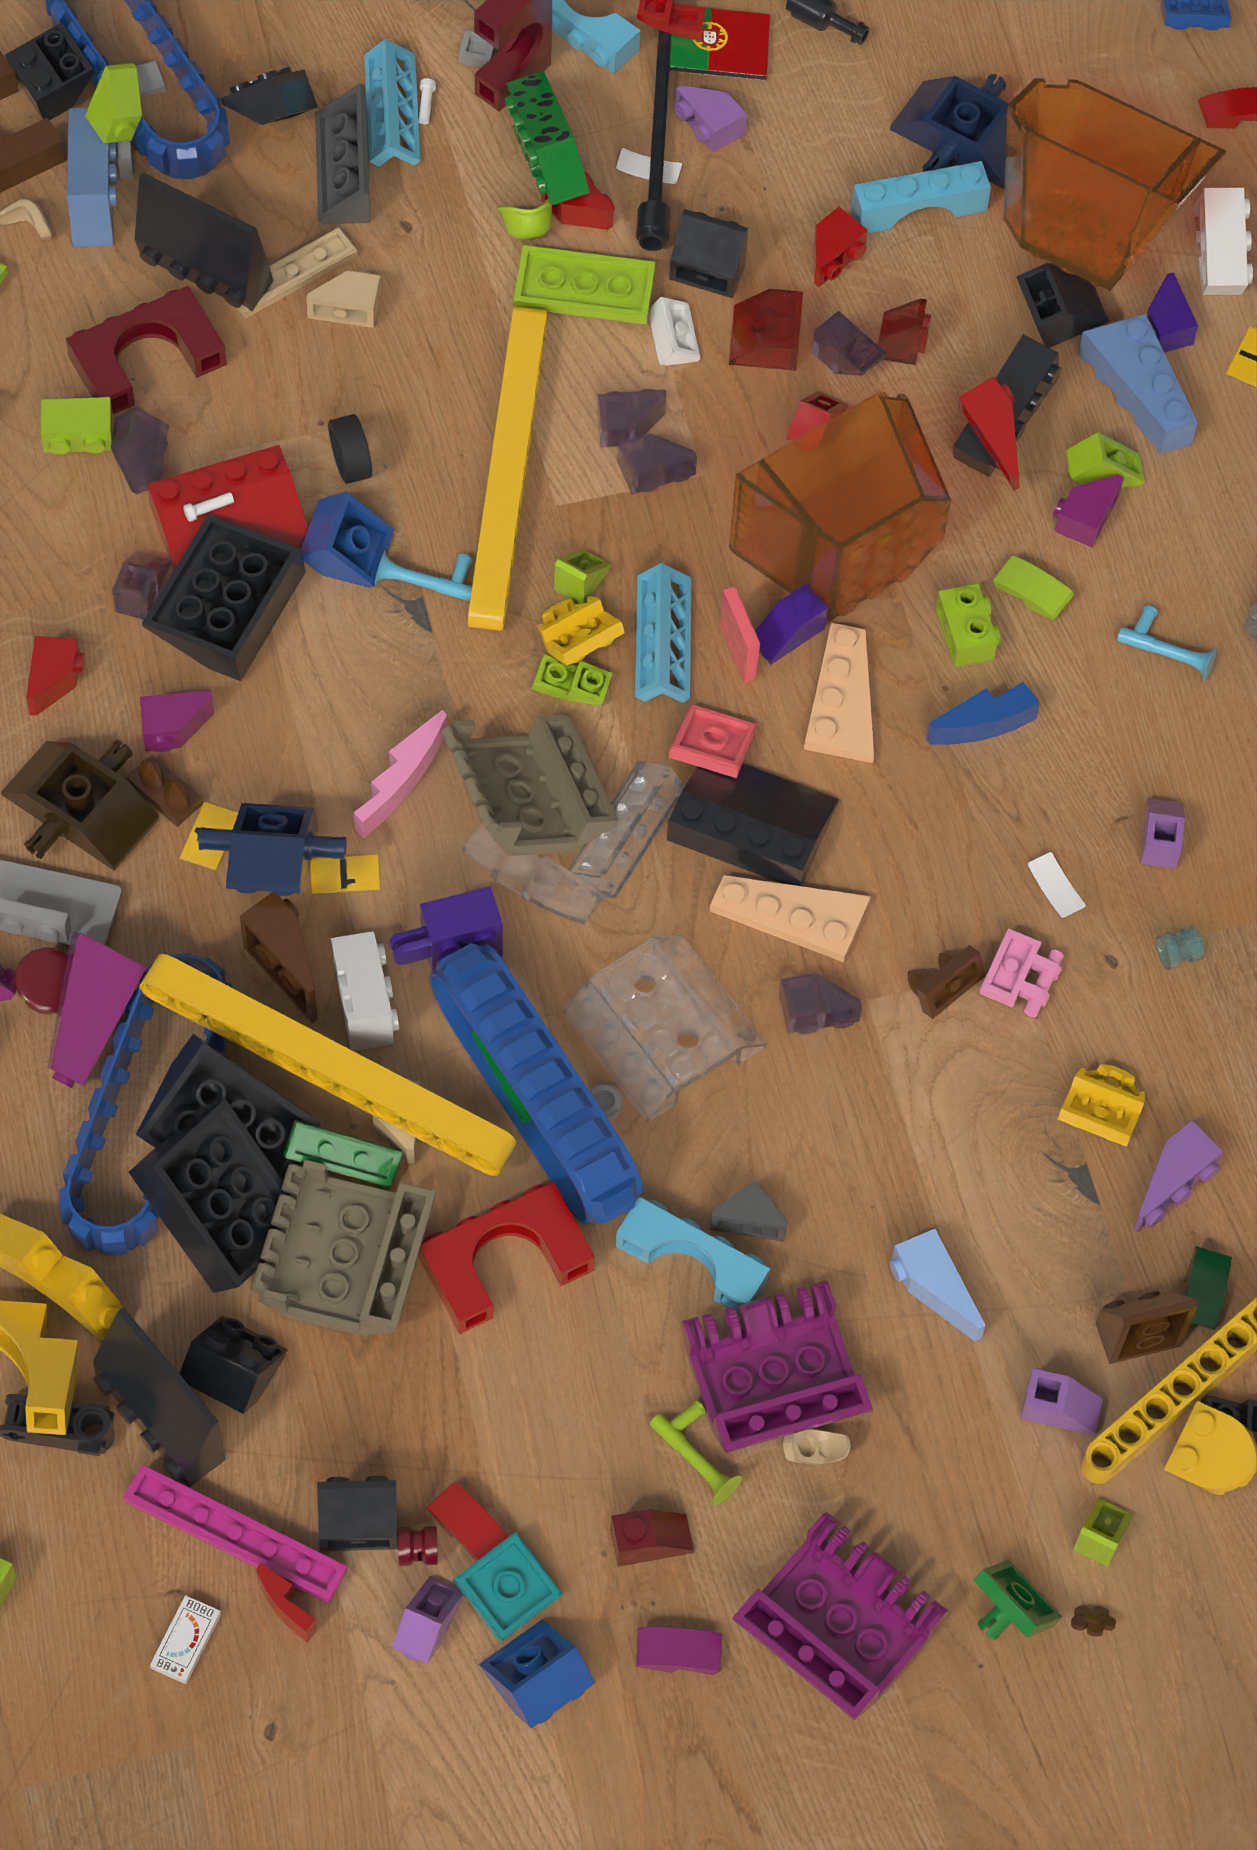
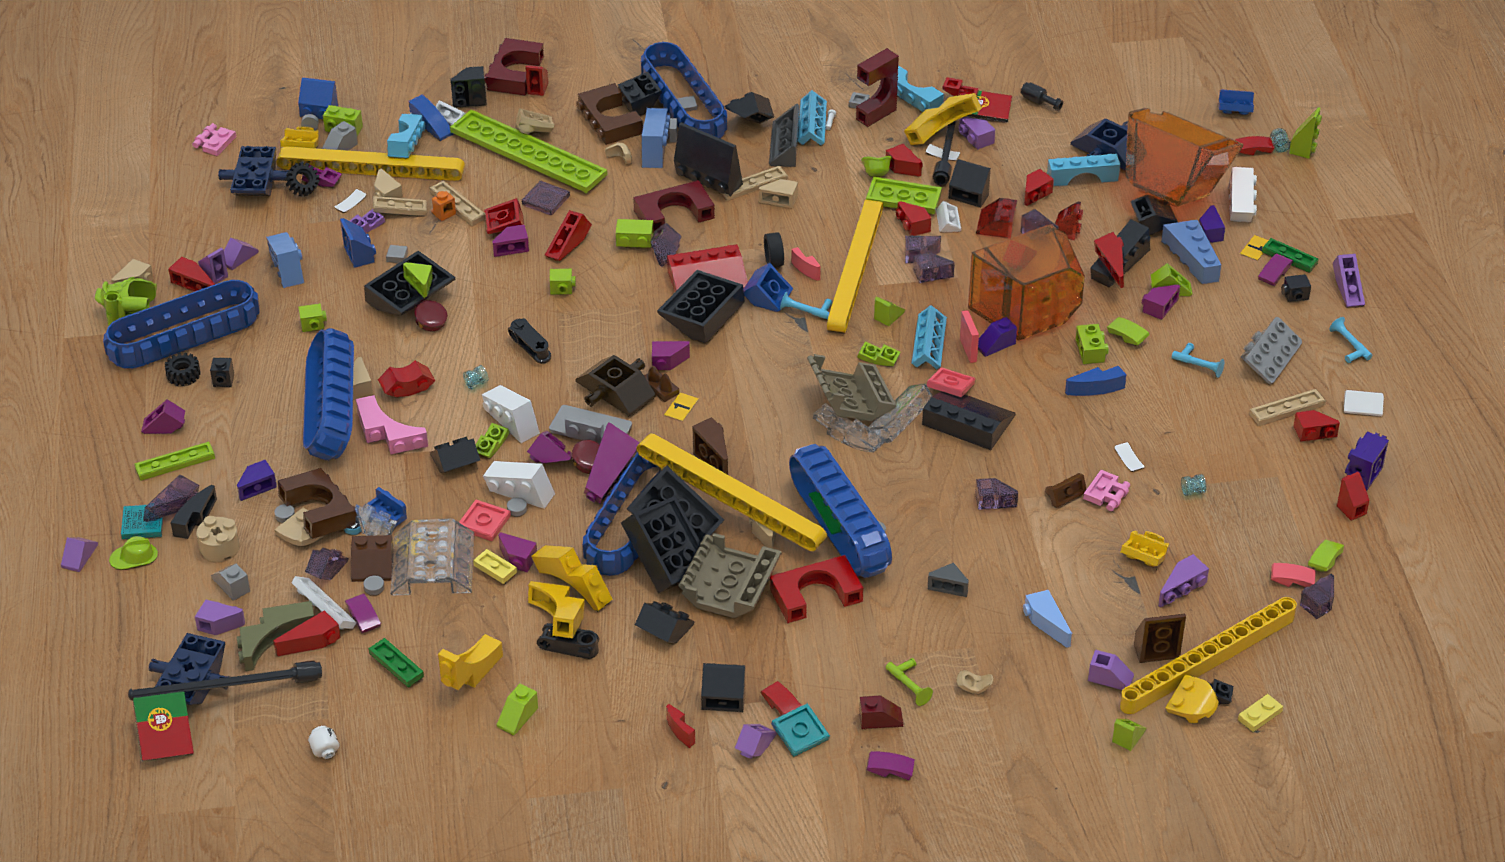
camera: 10 degrees right, 20 degrees down
(53, 671) = (608, 331): red slope -> none
(116, 104) = (671, 101): lime slope -> none
(139, 583) = (655, 298): slope -> none
(158, 1401) = (624, 628): black slope -> none
(185, 1640) = (624, 740): white tile -> none
(192, 511) = (688, 267): white piece -> none
(235, 1533) = (656, 694): dark pink plate -> none
(271, 847) = (712, 400): dark blue slope -> none
(343, 1153) = (735, 535): tile -> none
(346, 875) = (745, 426): yellow sticker -> none
(364, 991) = (754, 468): white wedge -> none
(407, 765) = (780, 389): bright pink slope -> none
(417, 476) = (805, 265): none -> coral slope
(417, 1546) = (749, 710): dark red wheel -> none
(449, 926) = (800, 437): dark purple brick -> none
(538, 1673) = (813, 768): blue slope -> none
(545, 138) = (889, 128): green brick -> none
(577, 629) = (881, 332): yellow slope -> none
(610, 343) = (914, 218): none -> red slope
(629, 95) = (937, 118): none -> yellow arch
(639, 1031) = (898, 497): clear slope -> none
(654, 1232) = (897, 584): medium azure arch -> none
(774, 1371) = (952, 644): magenta slope -> none
(802, 915) = (989, 459): light nougat wing -> none
(839, 1619) = (983, 756): magenta slope -> none
(842, 704) = (1021, 371): light nougat wing -> none
(1015, 1602) = (1075, 755): green tile -> none
(1094, 1620) = (1119, 770): reddish brown plant -> none
(1162, 833) = (1187, 437): medium lavender slope -> none
(1207, 1284) = (1195, 629): dark green slope -> none

